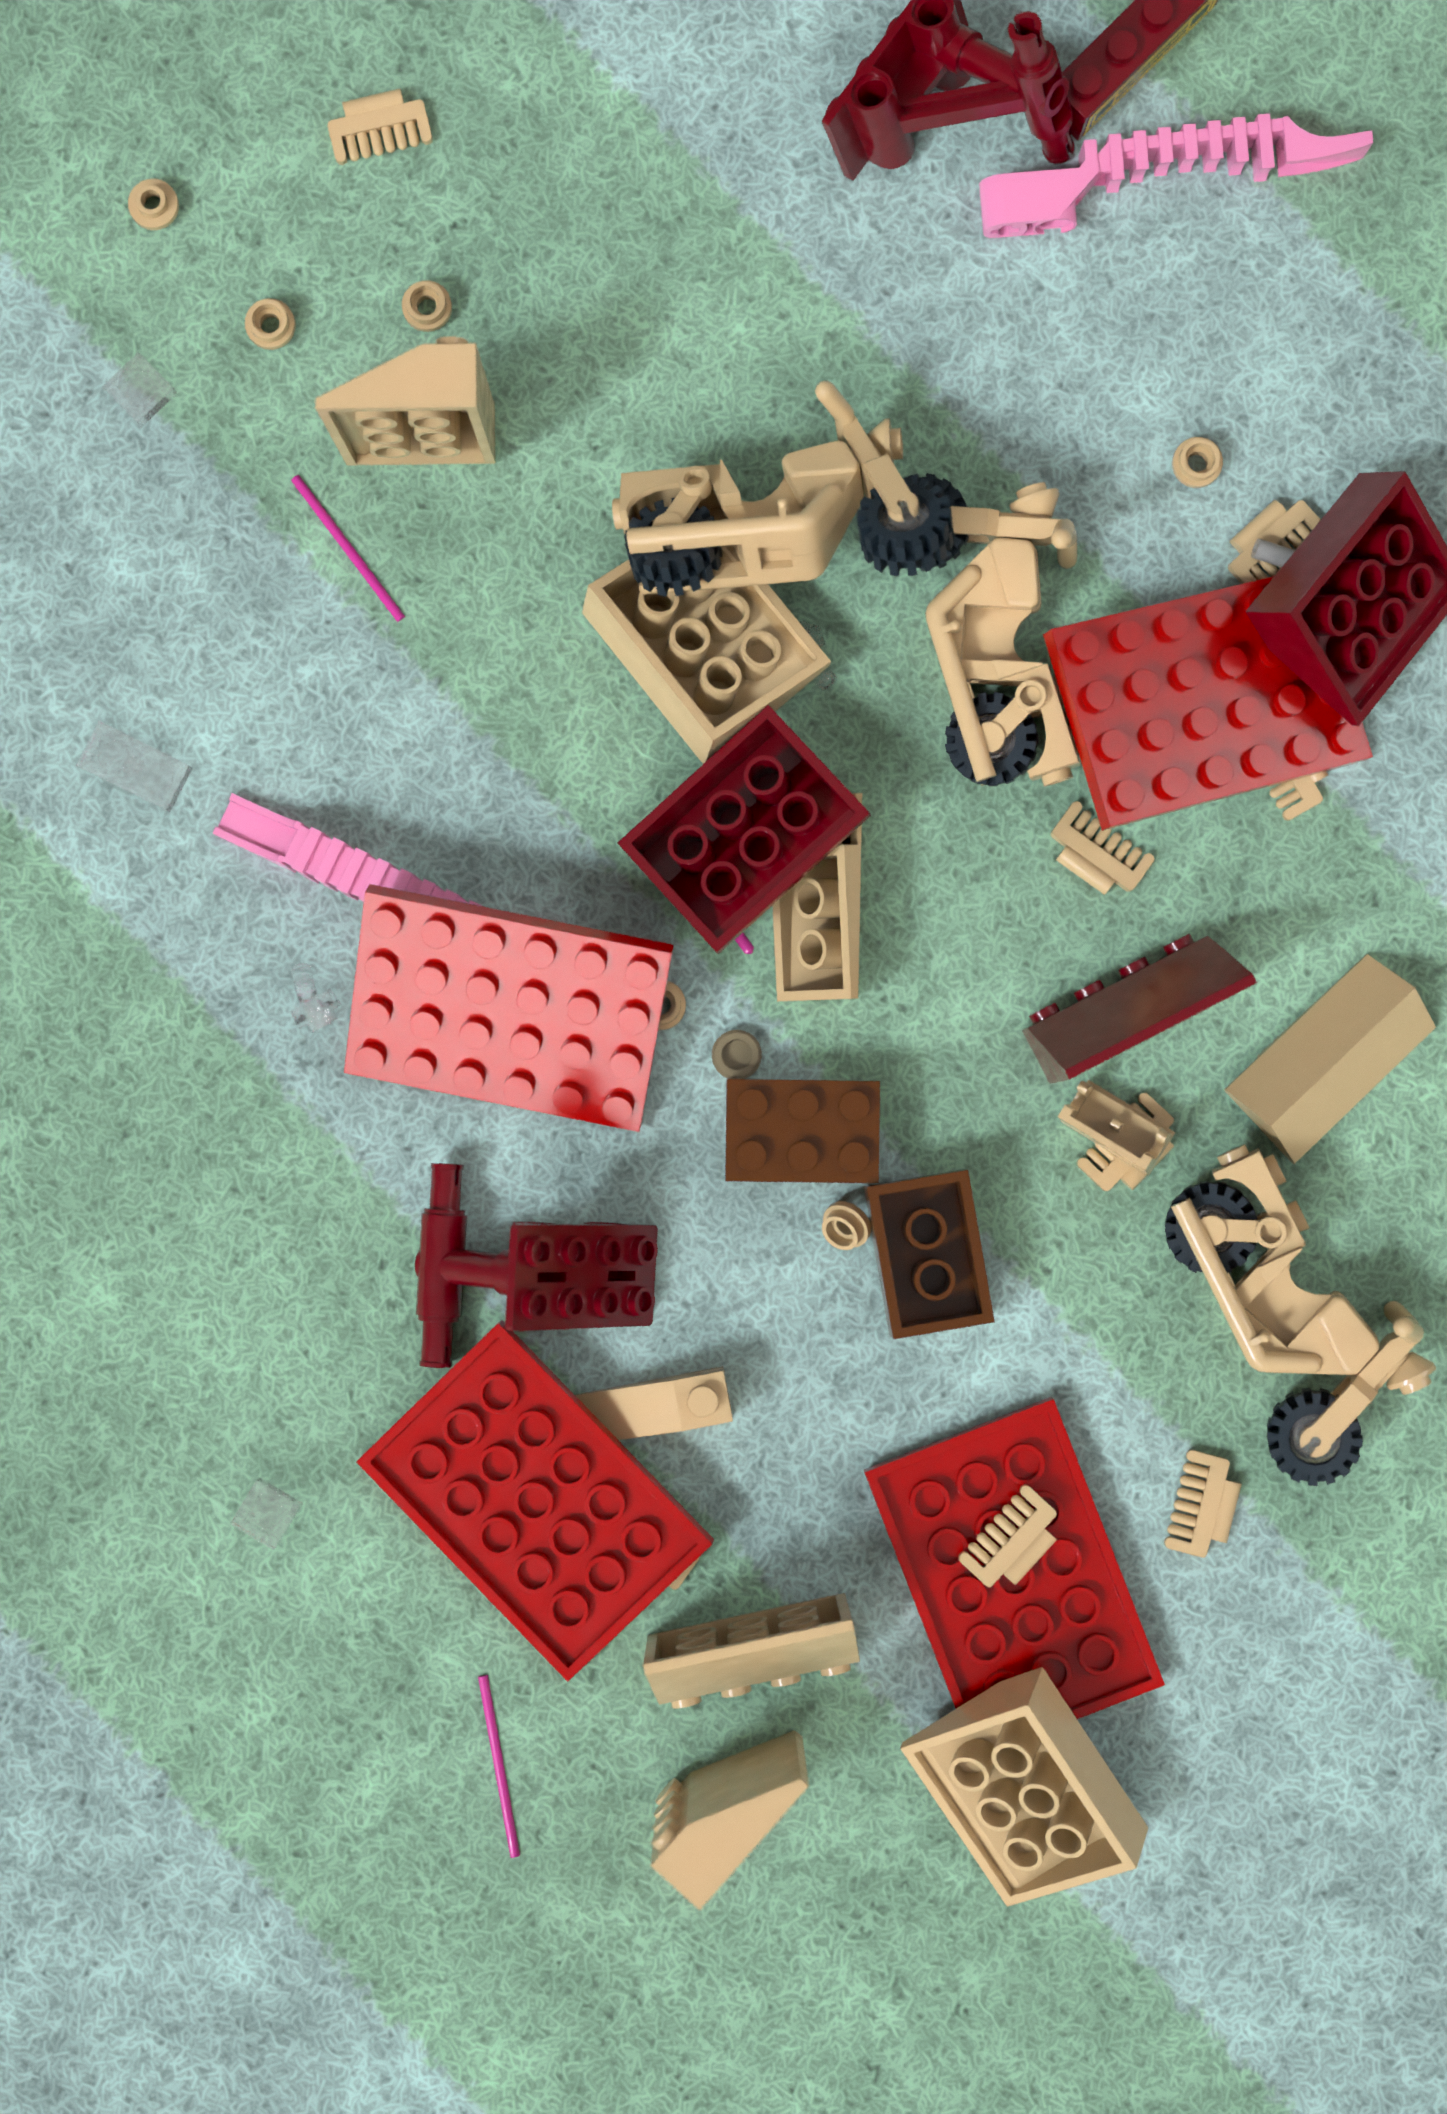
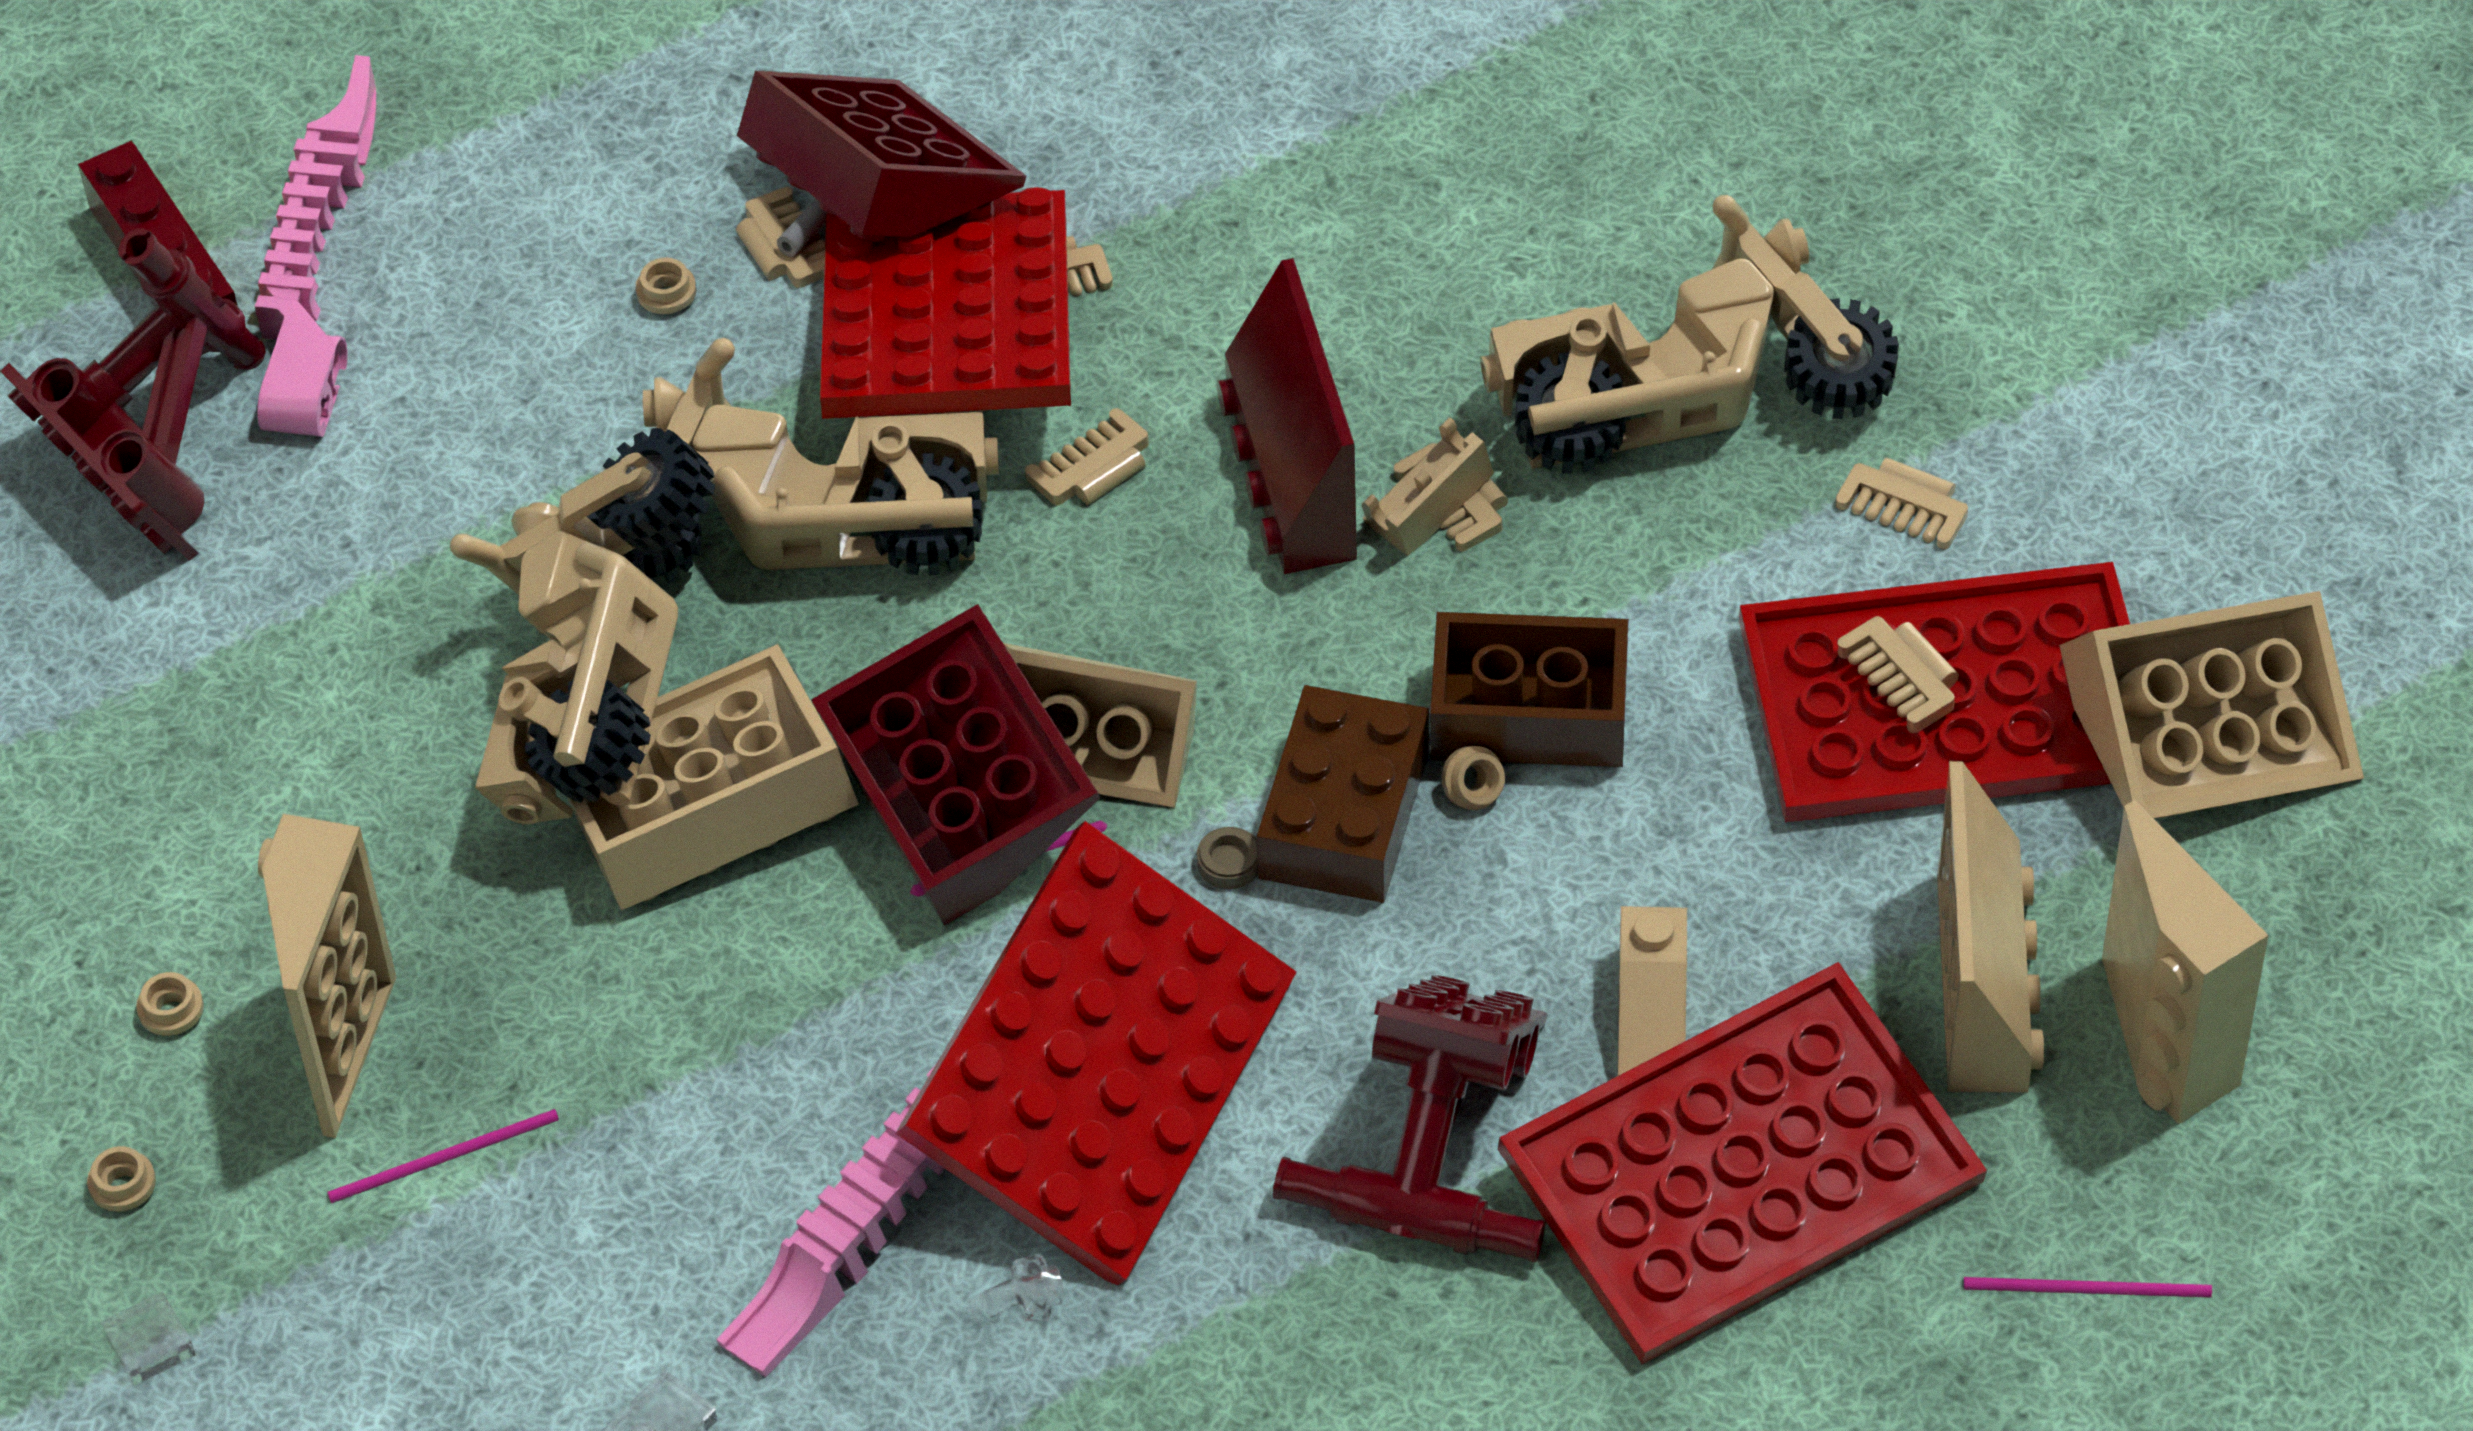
camera: 75 degrees left, 35 degrees down
(1331, 1056) = (1396, 282): tan slope -> none

